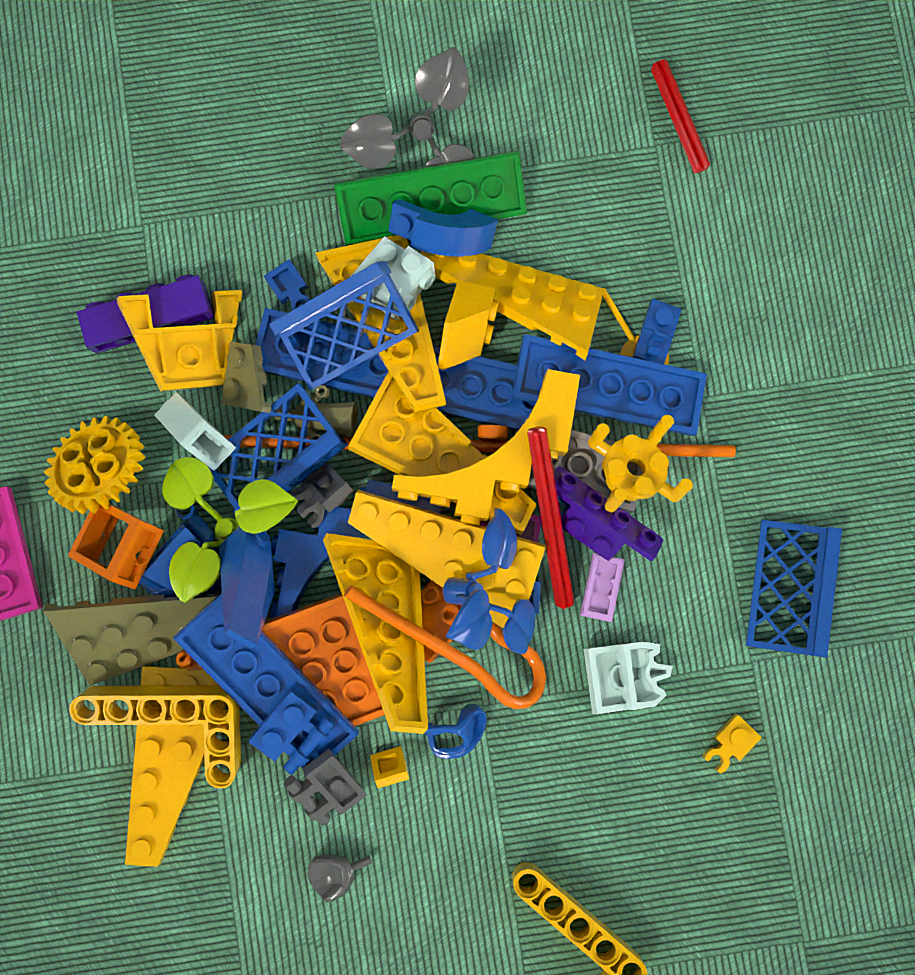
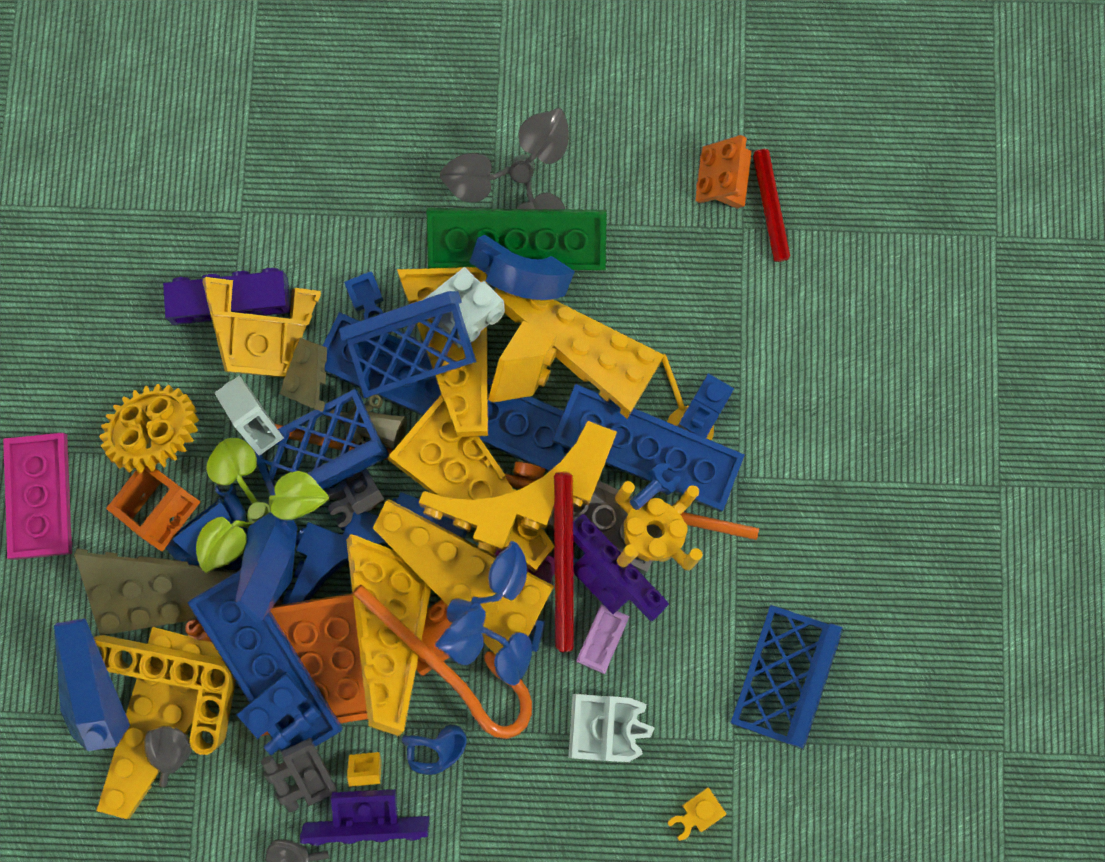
camera: 15 degrees right, 5 degrees down
(87, 746) = (86, 690): none -> blue wedge
(184, 790) = (167, 750): none -> dark grey piece
(400, 816) = (364, 818): none -> dark purple bracket
(626, 90) = (724, 172): none -> orange bracket
(628, 421) = (657, 485): none -> blue bar

